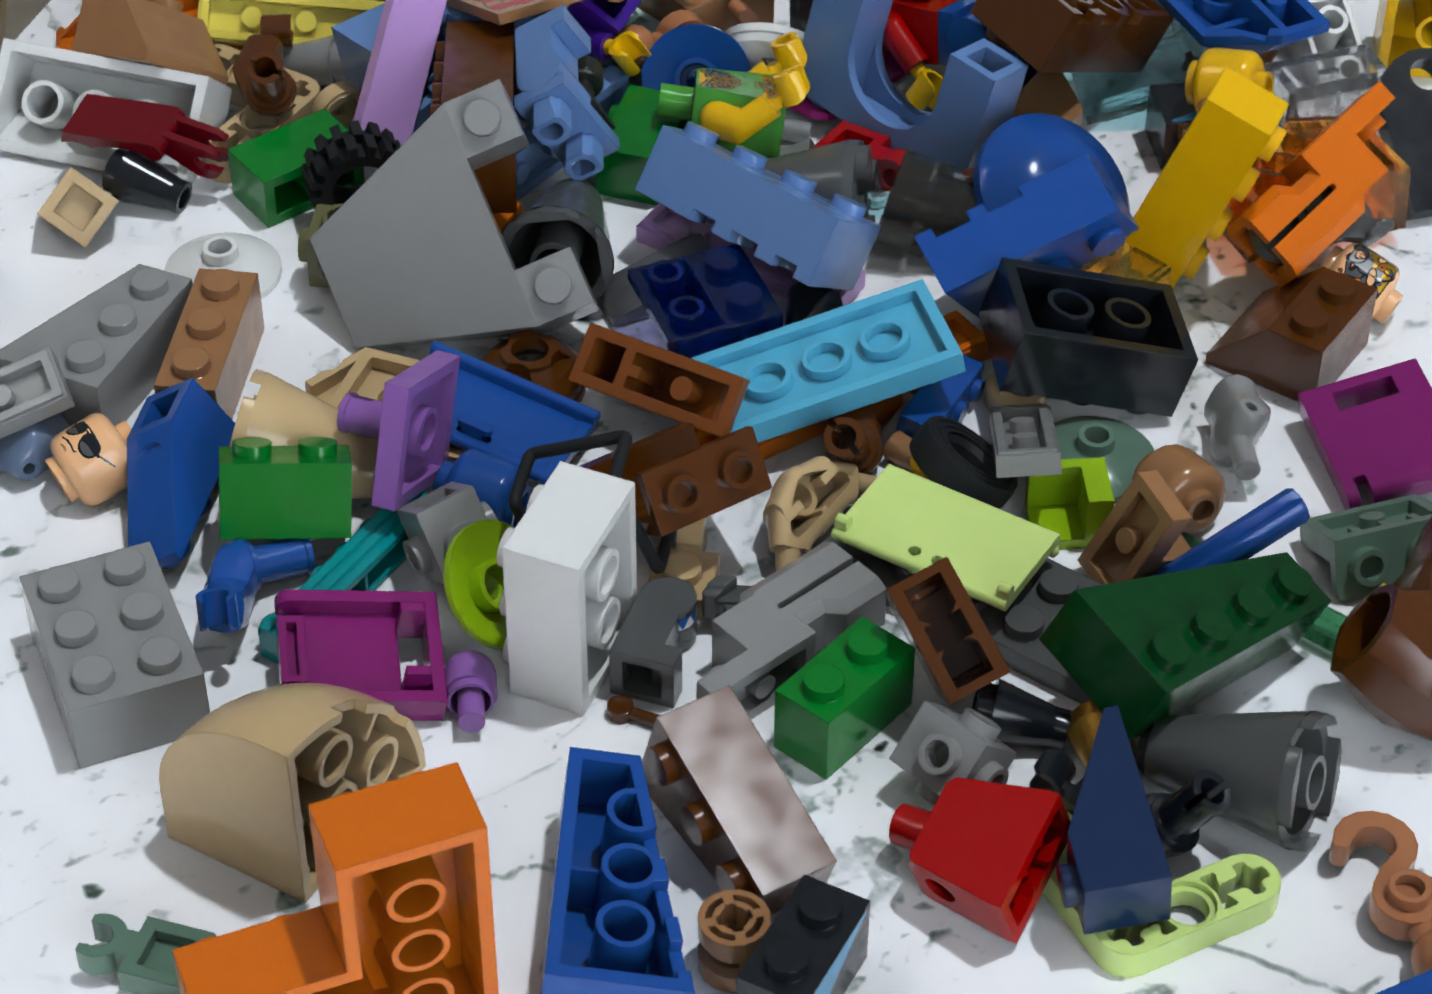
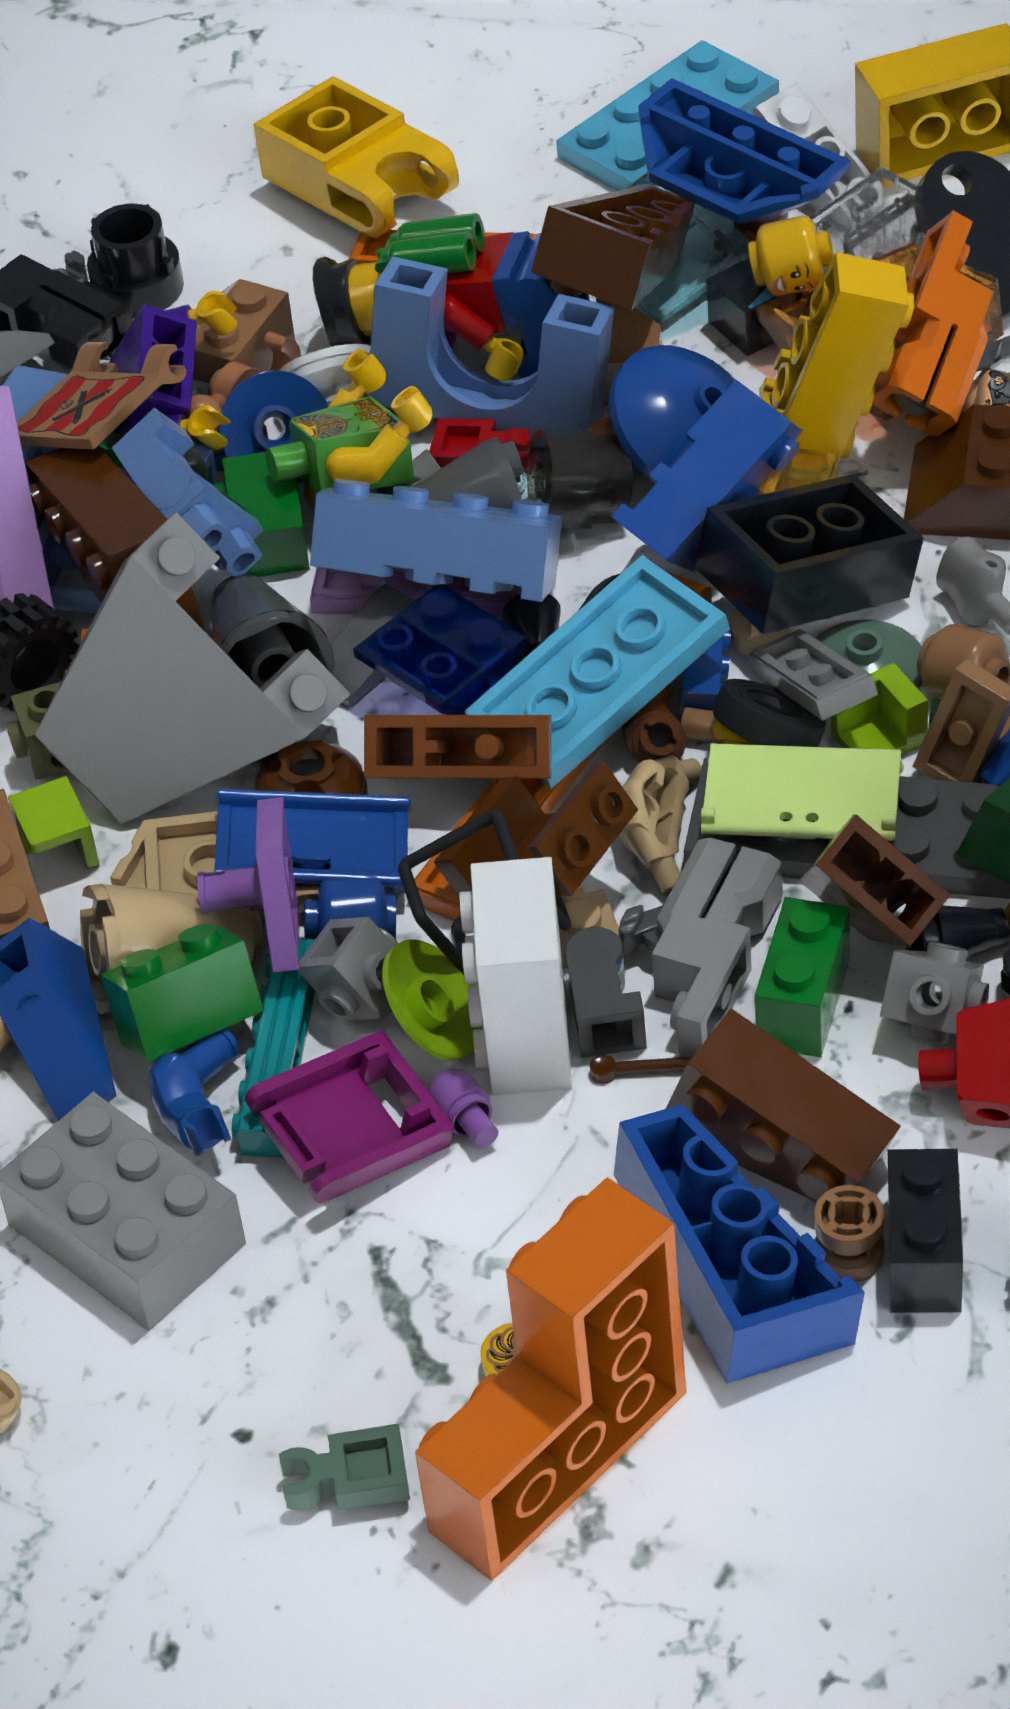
camera: 20 degrees left, 5 degrees up
(252, 766) = (369, 1264): tan brick -> none
(291, 317) = (51, 817): none -> lime panel

